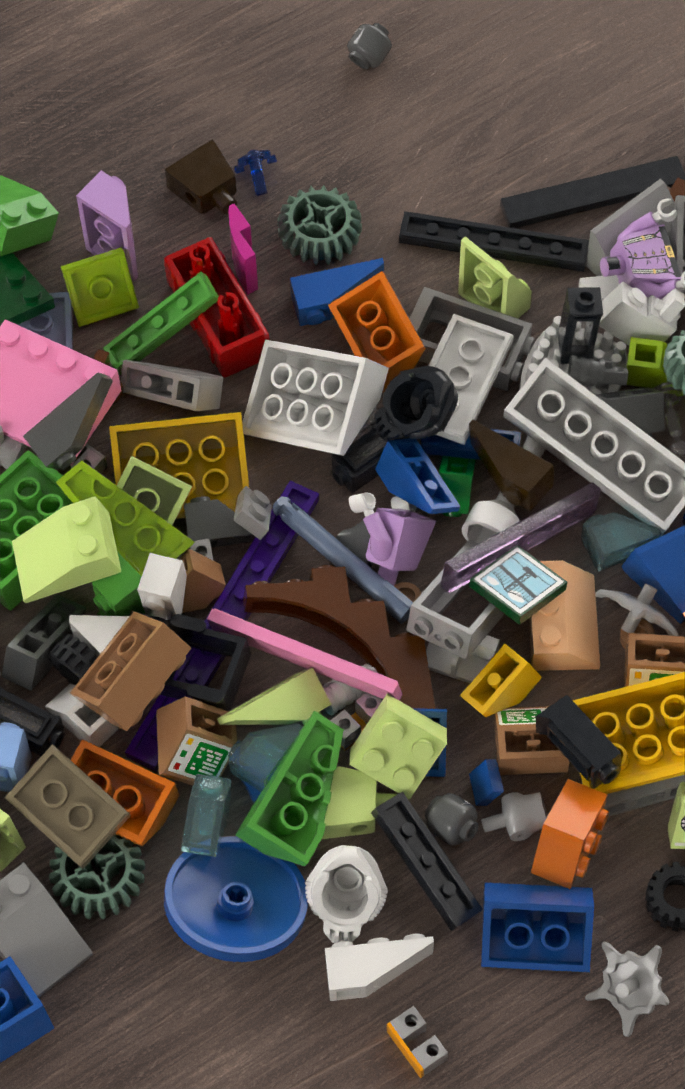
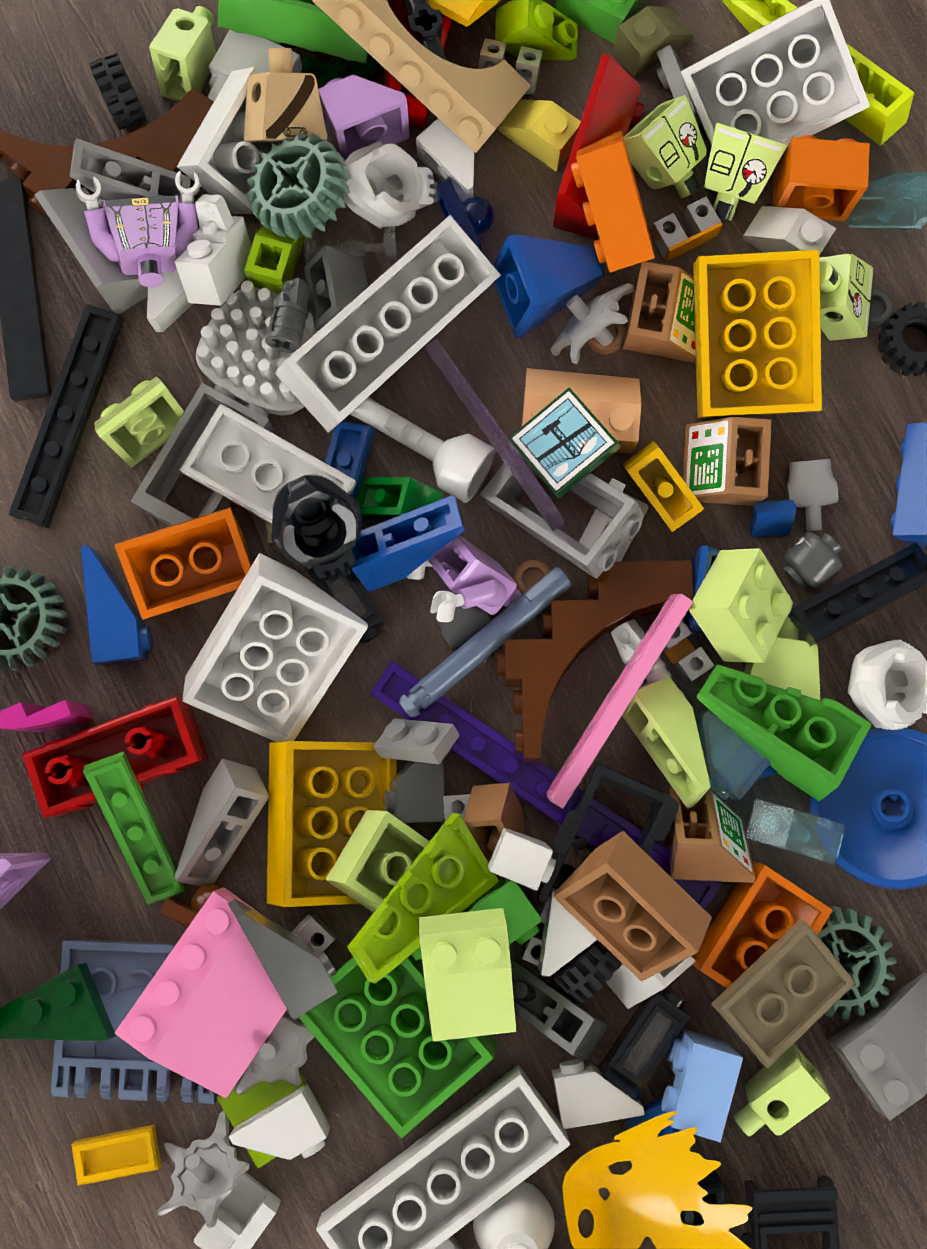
camera: 85 degrees left, 20 degrees up
(100, 287) = (65, 903): lime tile -> none
(516, 471) = (404, 430): dark brown slope -> none
(570, 834) = (861, 432): orange brick -> none
(579, 322) = (232, 317): black window -> none
(580, 741) = (773, 400): black window -> none
(614, 537) = (491, 336): clear light blue slope -> none

